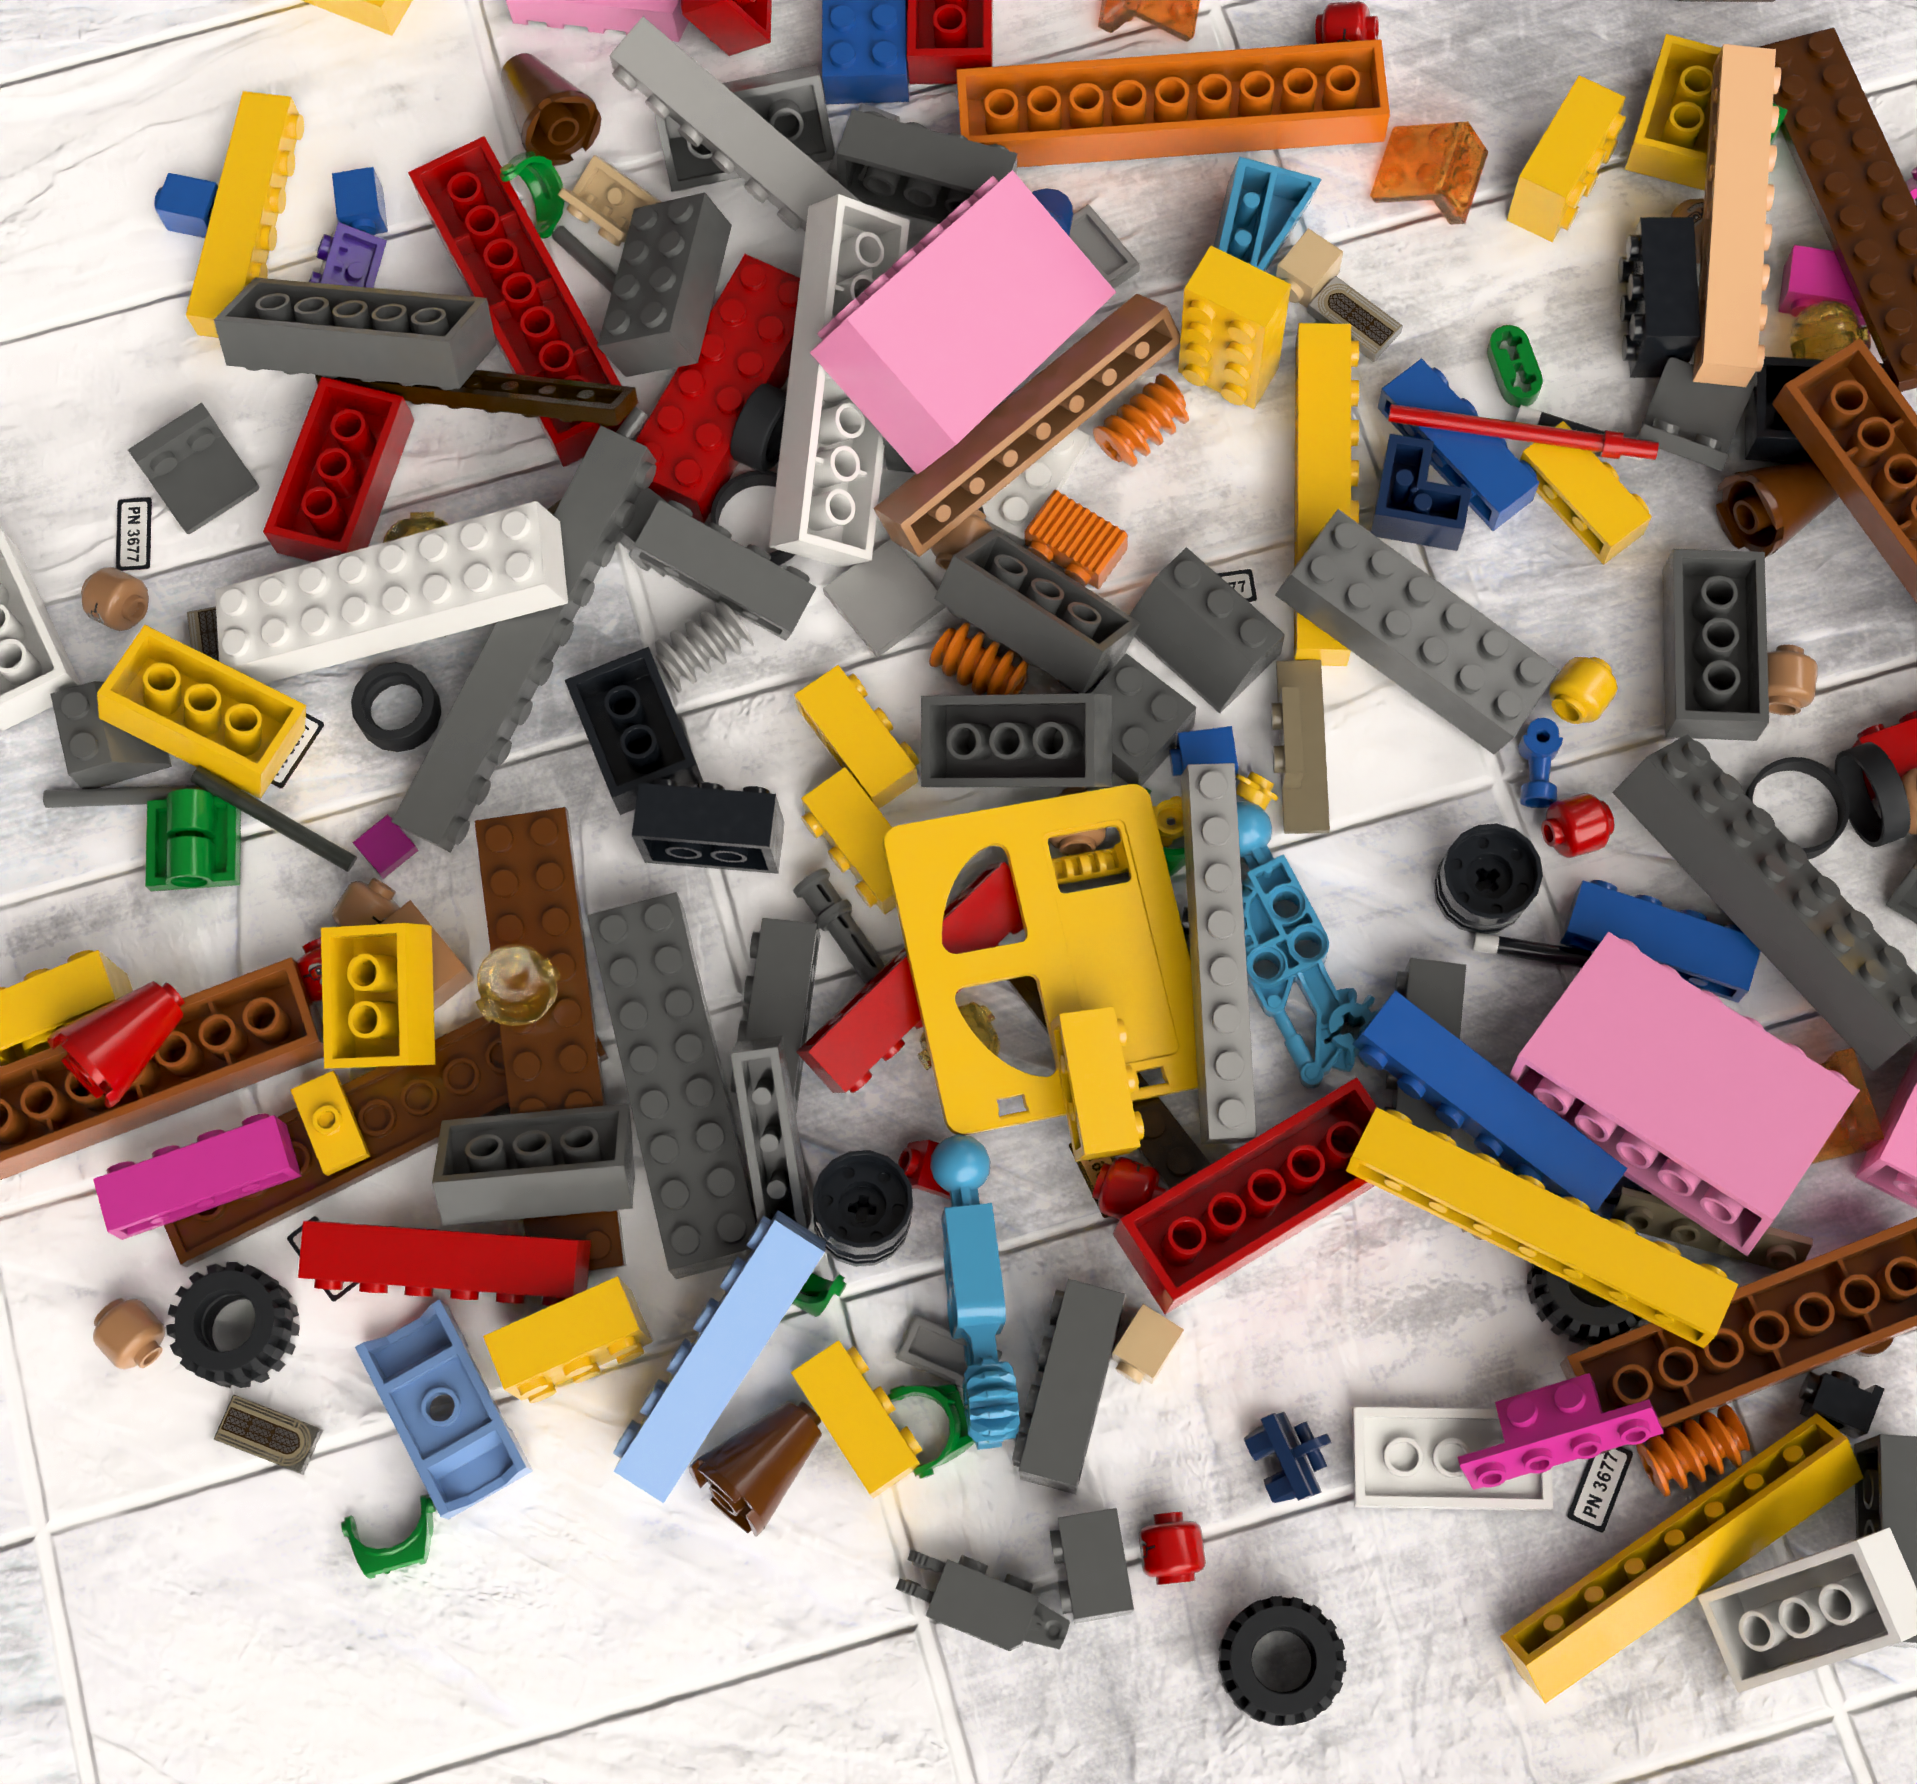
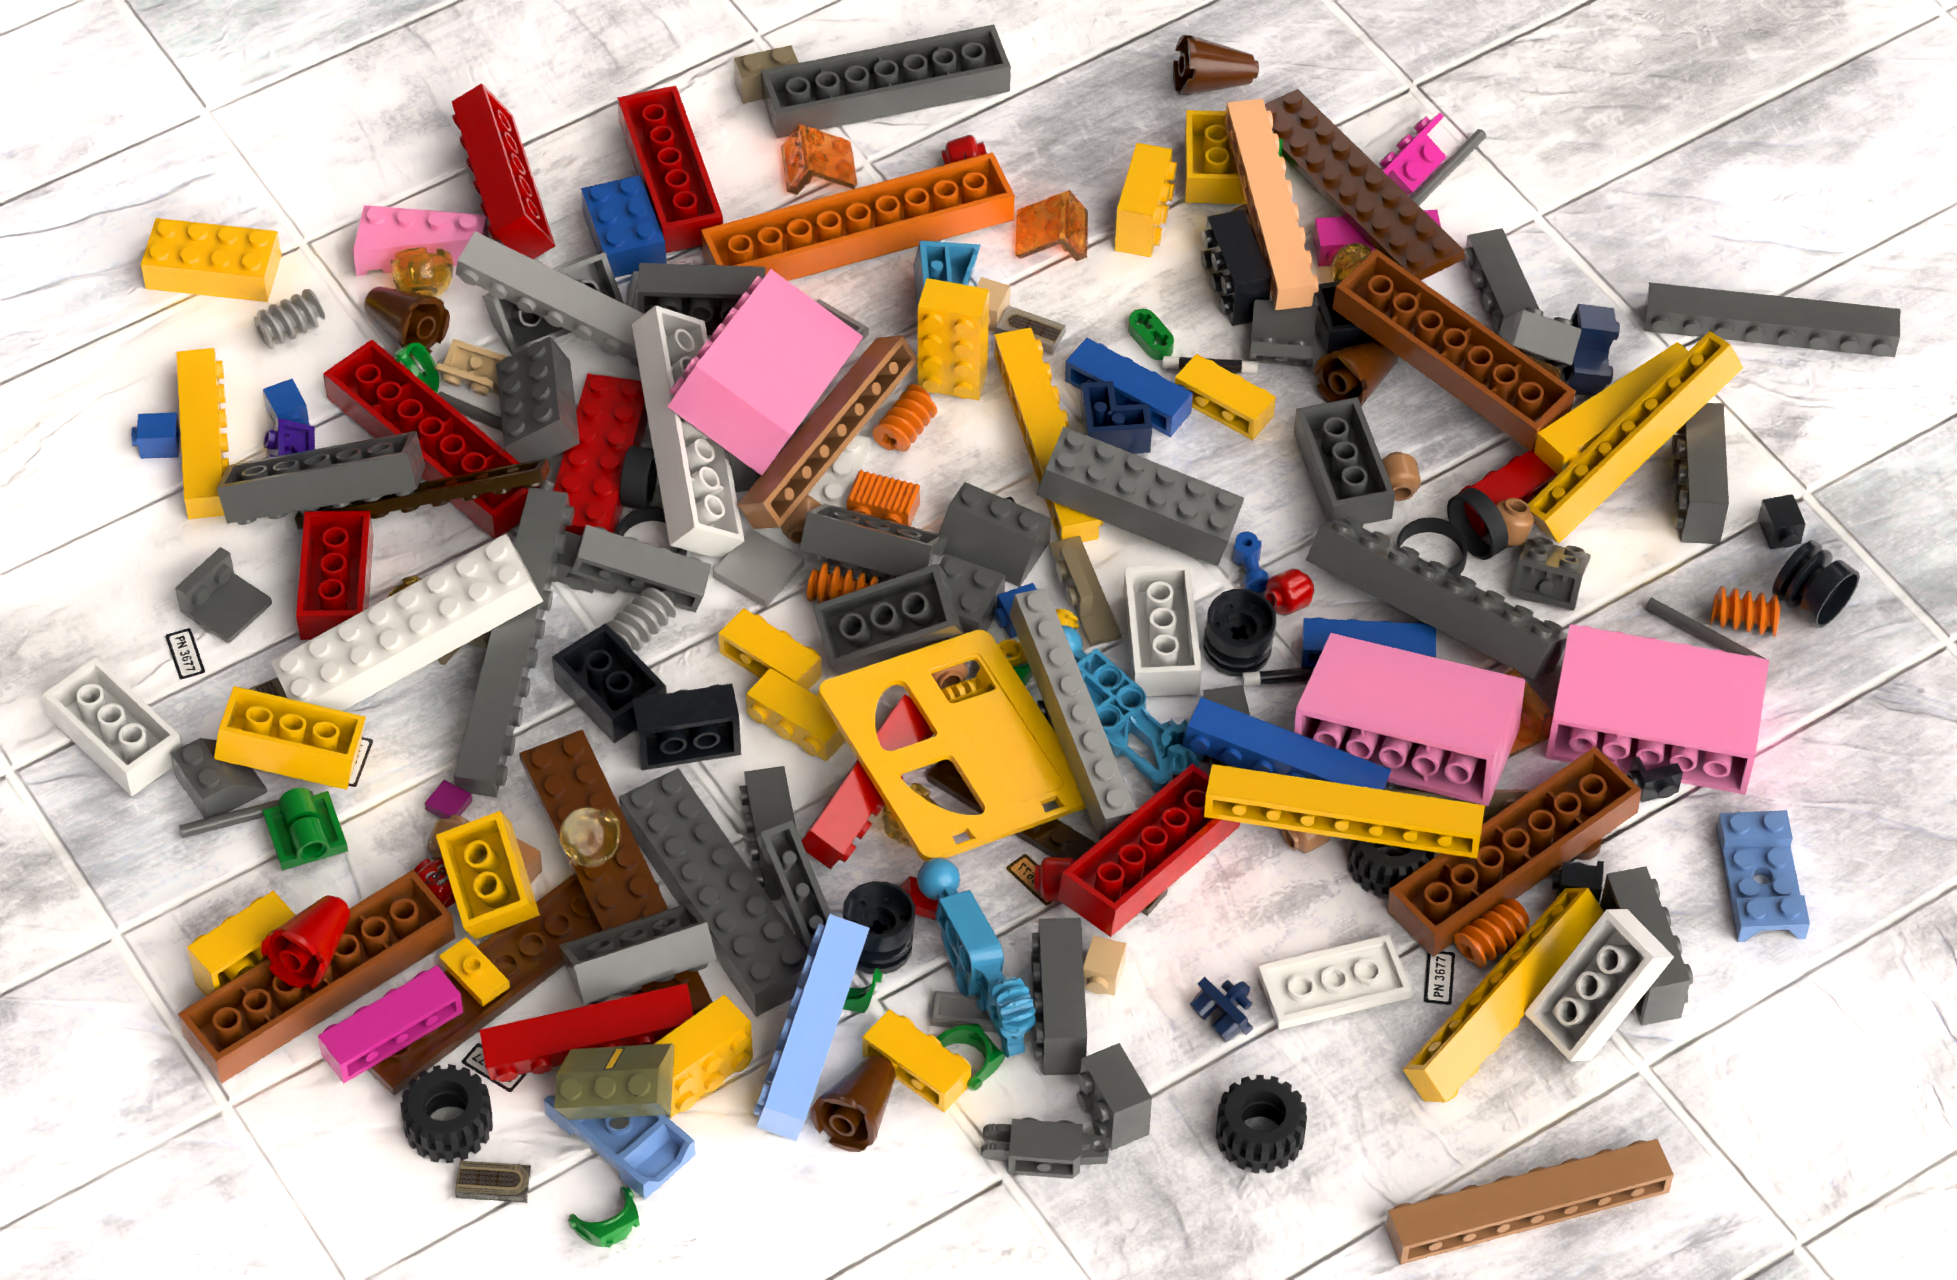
camera: 25 degrees left, 20 degrees down
(115, 598) = (191, 691): medium nougat head -> none
(128, 1333) = (369, 1141): medium nougat head -> none
(273, 818) = (362, 799): pearl dark grey bar -> none
(379, 680) = (423, 692): black tyre -> none
(400, 73) = (288, 316): none -> light grey piece
(436, 1370) = (615, 1082): none -> olive slope
(582, 46) = (422, 271): none -> clear yellow cylinder
(835, 916) = (795, 767): dark grey pin -> none
(1096, 1083) = (1015, 807): yellow brick -> none
(1172, 1549) = (1164, 1081): red head -> none
(1384, 844) = (1162, 629): none -> white brick
(1555, 1428) = (1397, 931): dark pink bracket -> none
(1583, 690) = (1264, 511): yellow head -> none
(1609, 444) = (1233, 358): red bar -> none

